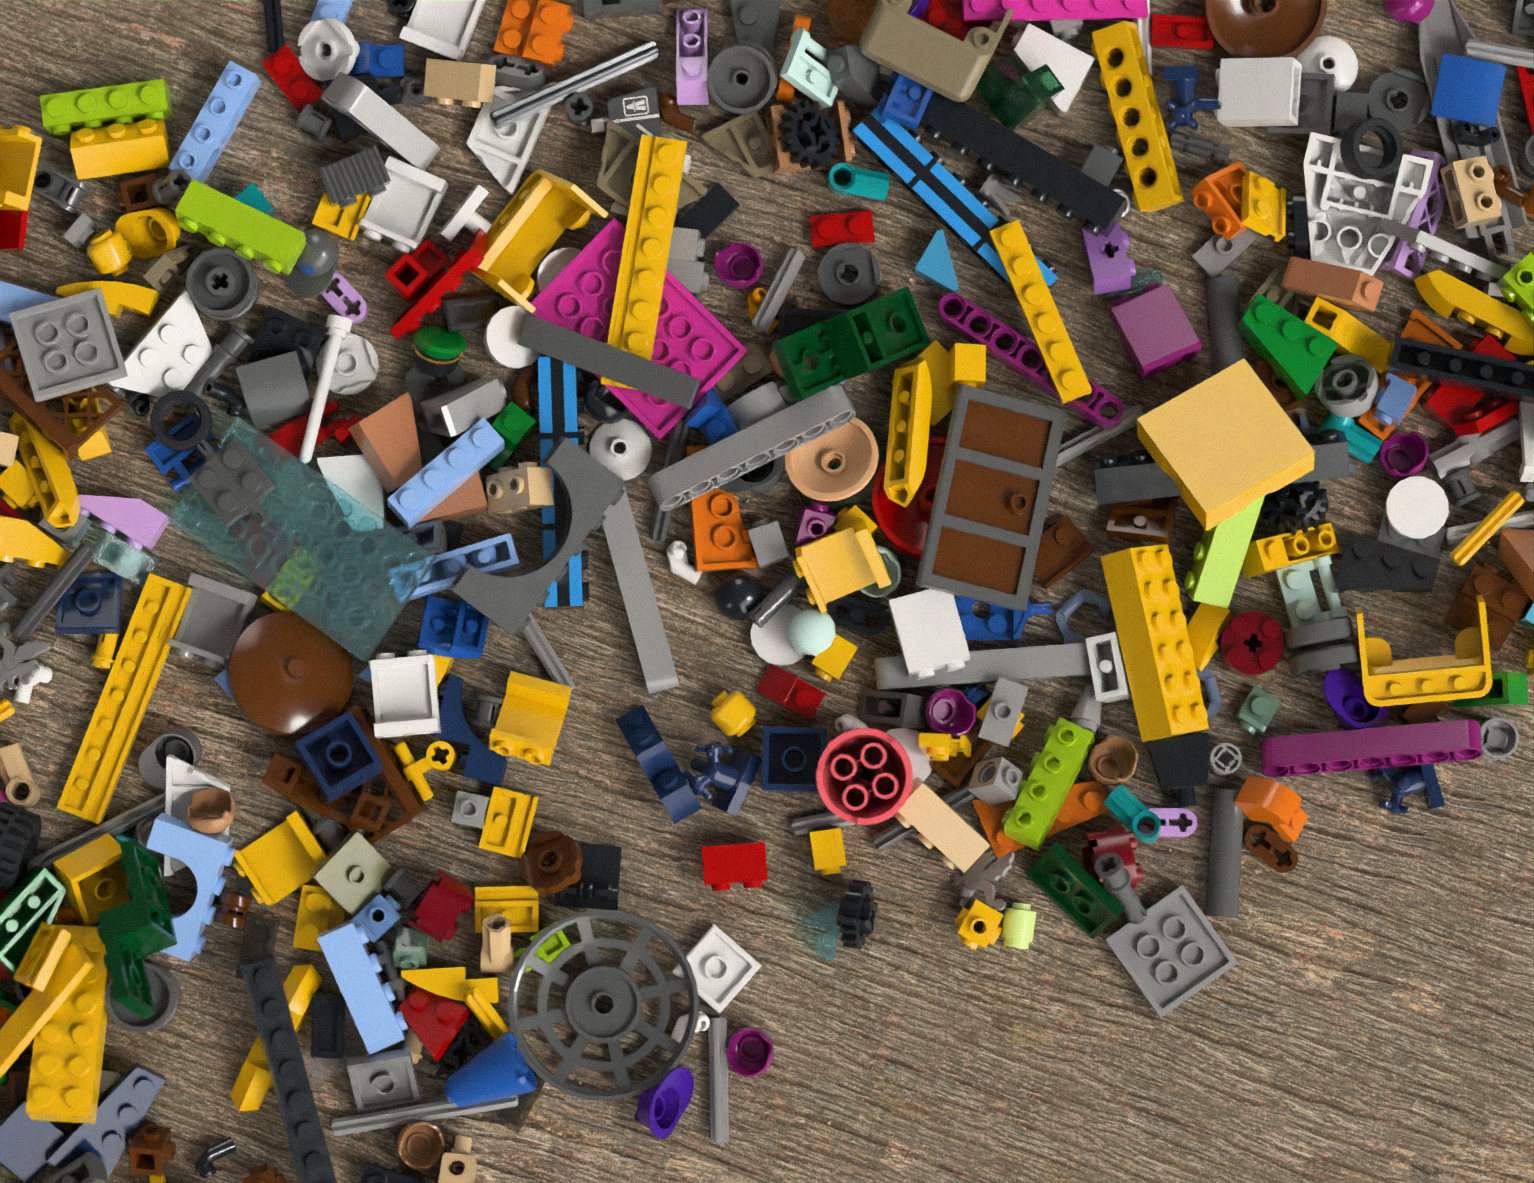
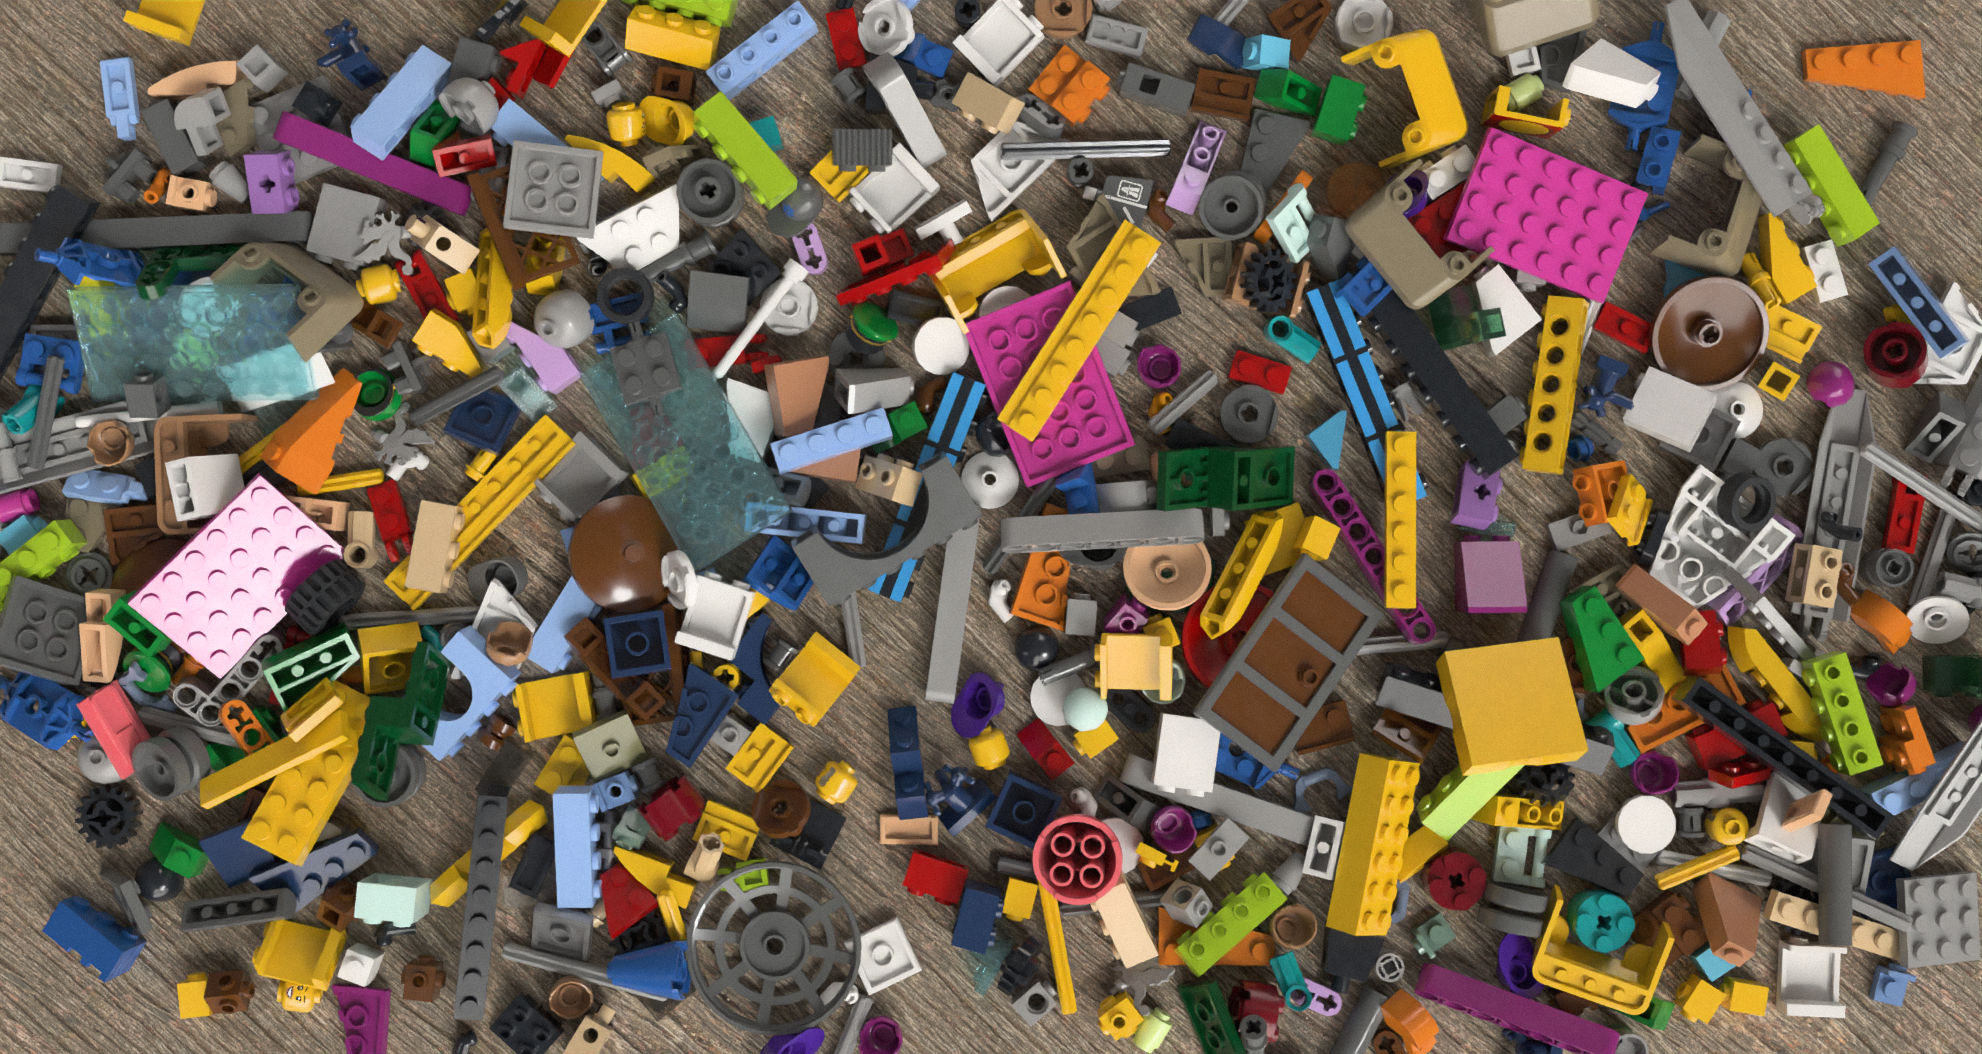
camera: 25 degrees right, 5 degrees up
(38, 741) = (391, 517): none -> red hinge
(95, 748) = (435, 546): none -> tan brick
(129, 469) = (563, 319): none -> light grey cylinder
(172, 183) = (704, 85): dark grey bush -> none
(200, 1118) = (392, 899): none -> light aqua brick
(251, 796) = (549, 645): none -> light blue brick
(353, 673) = (680, 578): none -> white tile
(430, 798) = (700, 712): none -> dark blue wing
(595, 814) = (836, 782): none -> yellow head
(609, 361) = (1012, 404): dark grey tile -> none
(689, 832) = (909, 832): none -> light nougat tile
(702, 674) = (977, 704): none -> dark purple piece
(792, 884) = (976, 916): none -> dark blue brick
(864, 392) = (1218, 521): none -> light grey plate
(887, 883) = (1058, 951): none -> yellow axle
(888, 961) = (1030, 1012): none -> light grey brick
(1191, 168) = (1580, 448): none -> blue plate
(1354, 19) = (1779, 381): none -> yellow brick
(1393, 310) = (1704, 652): none -> red brick
(1393, 401) = (1668, 725): medium blue brick -> none
(1432, 617) = (1616, 921): none -> teal brick
(1468, 90) = (1850, 486): blue slope -> none
(1498, 475) = (1726, 825): none -> yellow head

